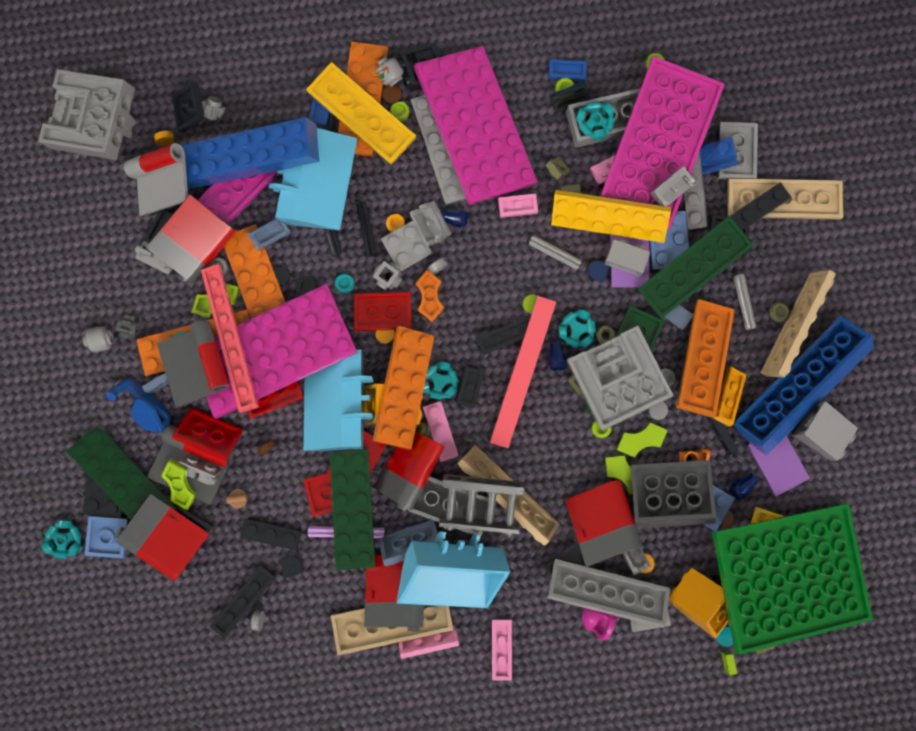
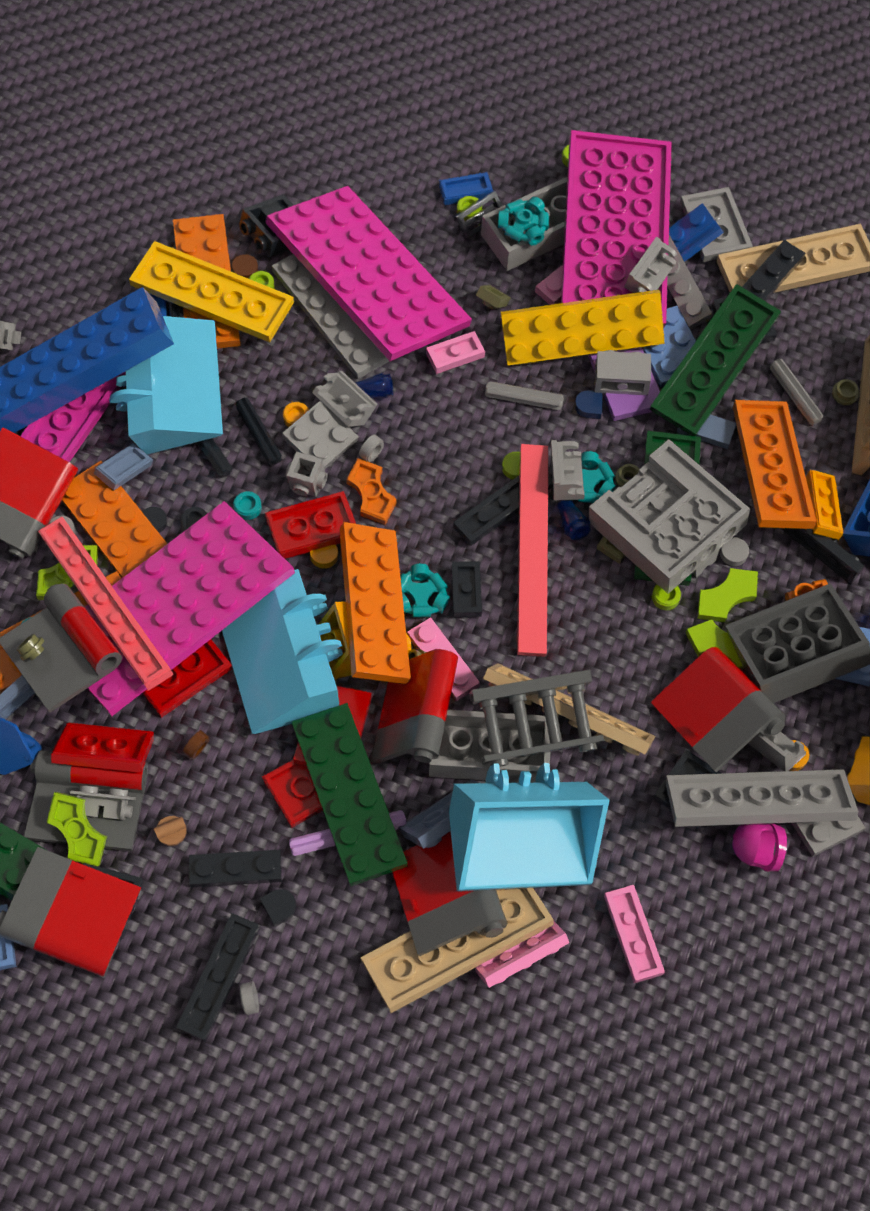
camera: 20 degrees left, 20 degrees down
(174, 360) = (31, 647): none -> olive plate
(389, 71) = (235, 236): light grey head -> none
(563, 324) = (566, 471): none -> light grey hinge

